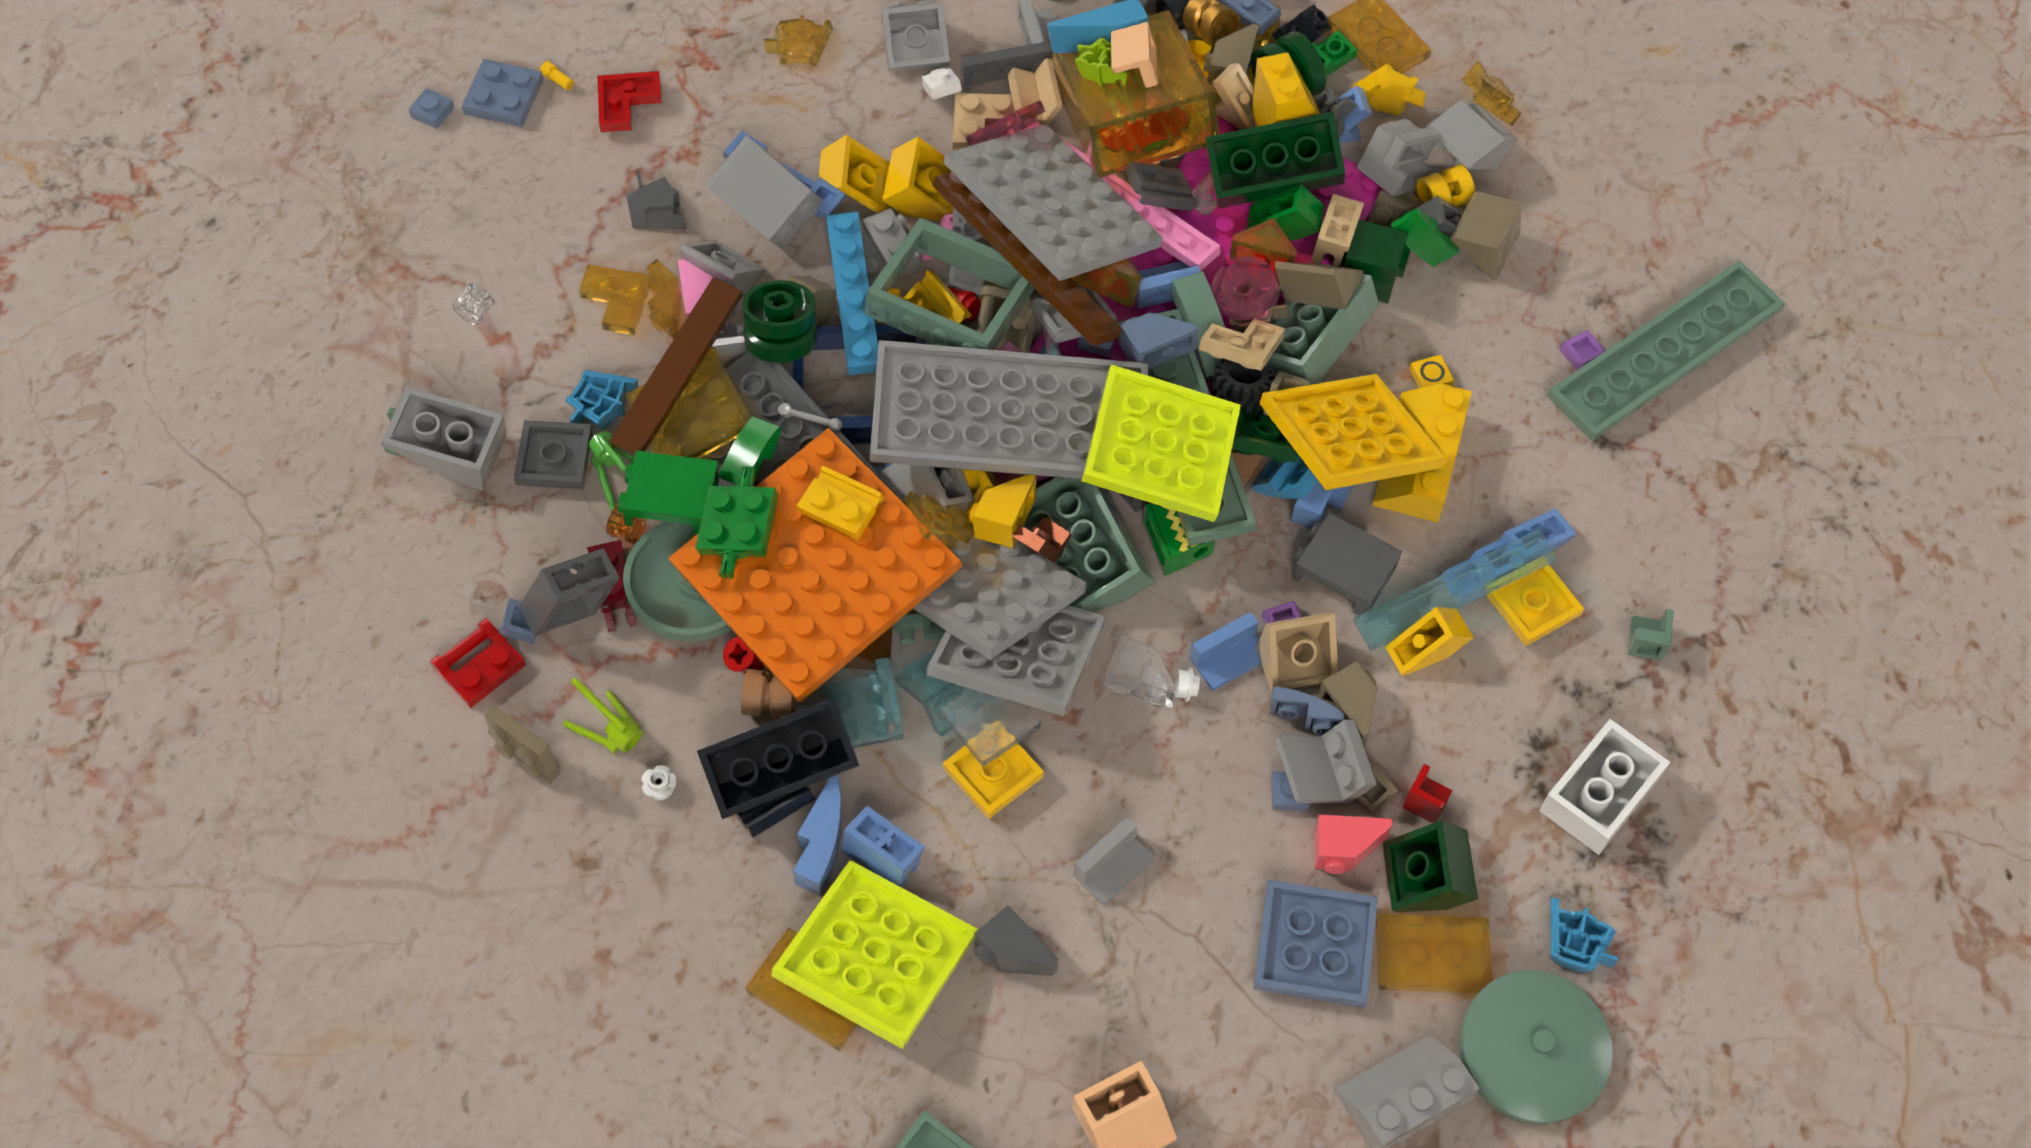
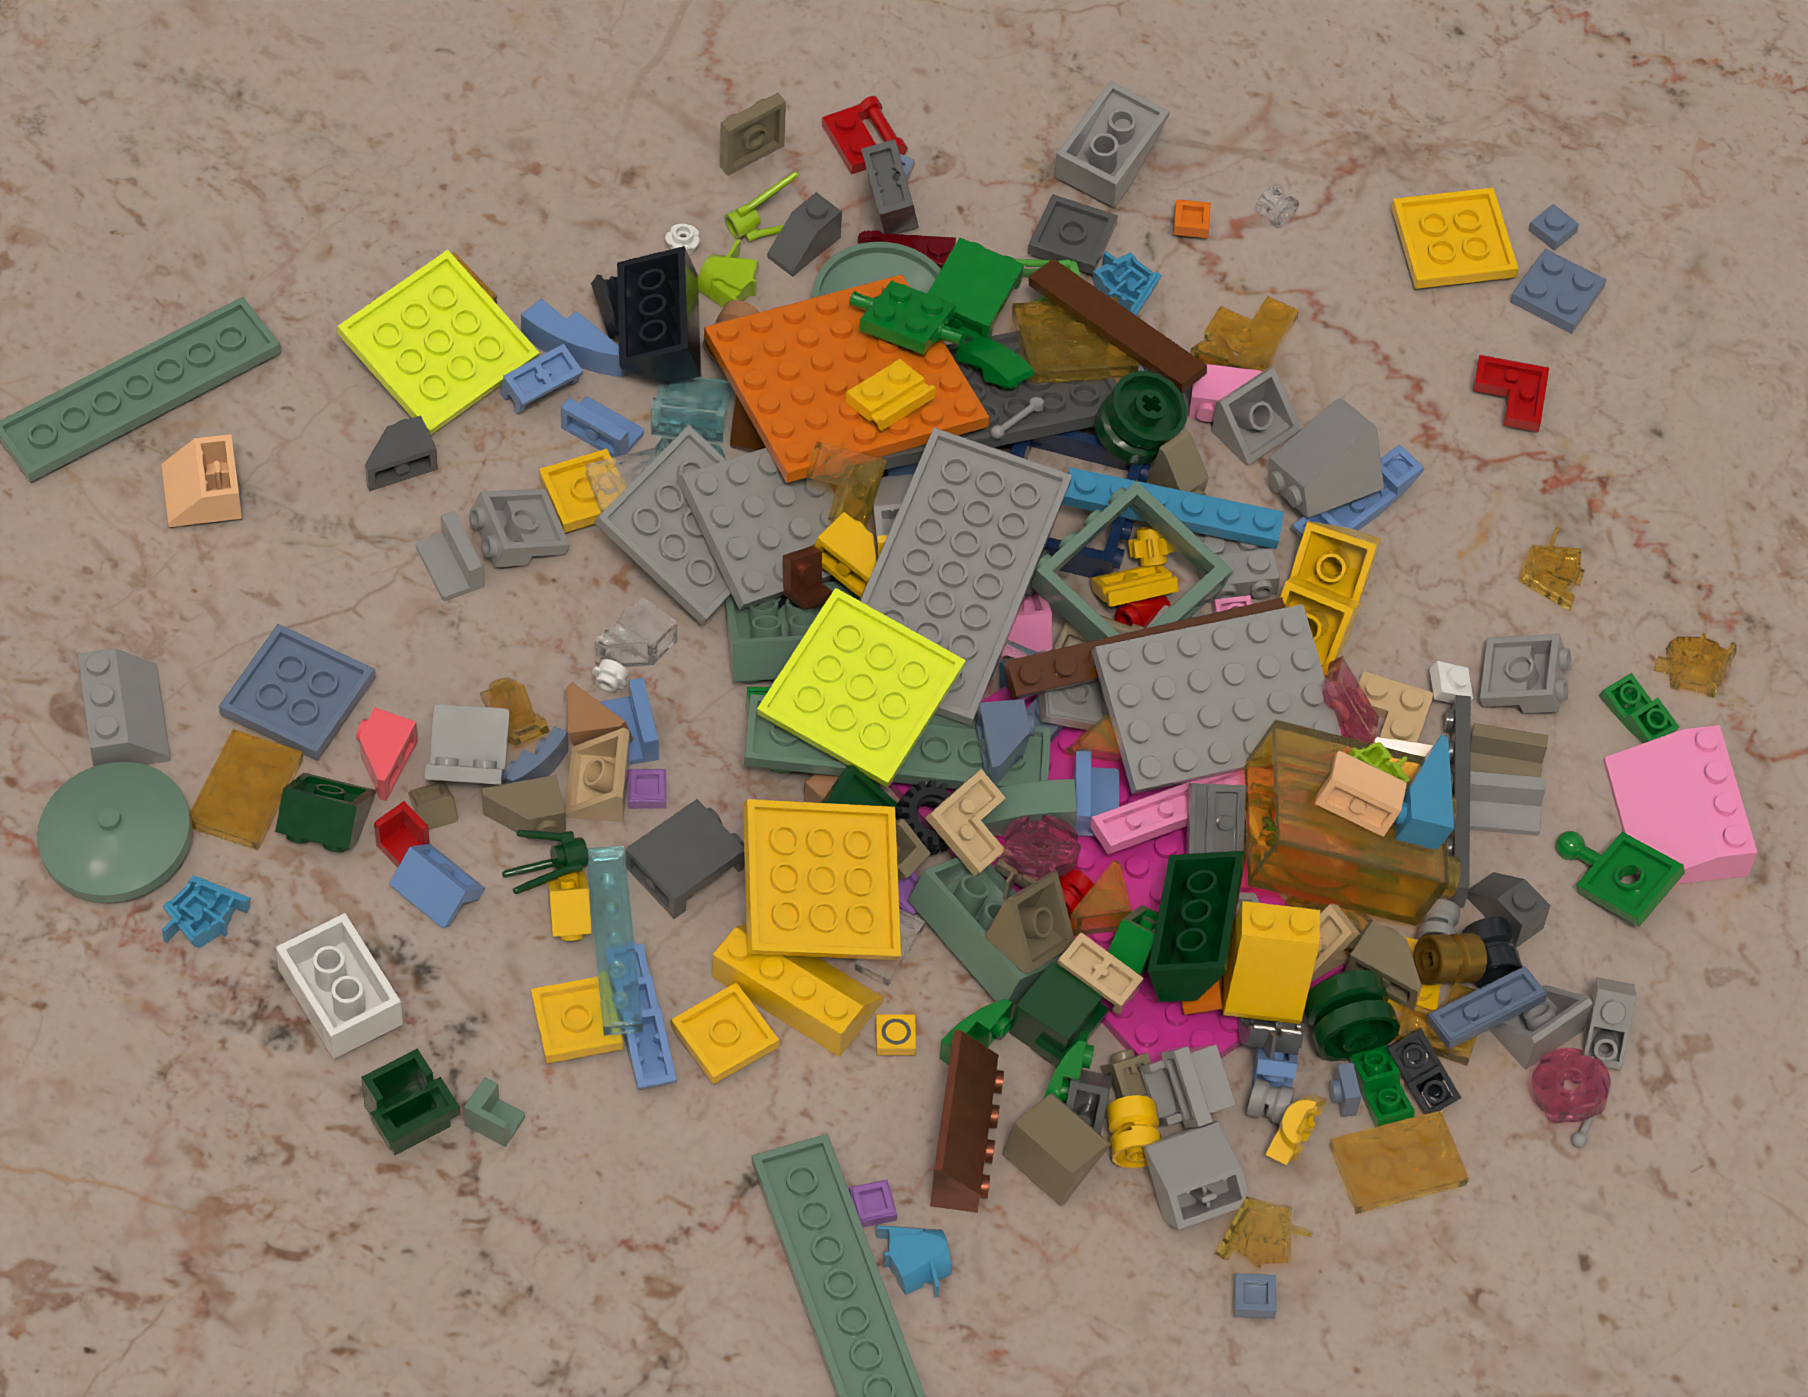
camera: 105 degrees right, 5 degrees down
(469, 170) = (1454, 238): none -> yellow plate
(506, 366) = (1192, 218): none -> orange plate
(551, 72) = (1574, 338): yellow piece -> none
(625, 671) = (806, 234): none -> dark grey slope
(654, 206) = (1366, 383): dark grey piece -> none
(695, 724) = (728, 276): none -> lime piece
(910, 782) = (600, 426): none -> medium blue panel
(995, 32) = (1506, 751): none -> dark tan panel
(1060, 811) = (517, 526): none -> light grey plate
(1248, 678) = (589, 717): none -> medium nougat slope
(1258, 751) = (523, 721): none -> clear yellow slope
(1341, 72) = (1345, 1090): none -> sand blue plate
(1379, 109) = (1269, 1100): none -> light grey wheel
(1389, 657) = (568, 855): none -> dark green plant
(1396, 310) = (983, 1025): none -> green slope
(1458, 752) = (434, 883): none -> medium blue panel
(1493, 489) = (724, 1033): none -> yellow plate
(1499, 300) = (965, 1125): none -> copper slope
(1535, 93) = (1255, 1296): none -> sand blue plate
(1612, 310) = (916, 1256): none -> dark azure piece
(1685, 693) = (407, 1102): none -> dark green plate

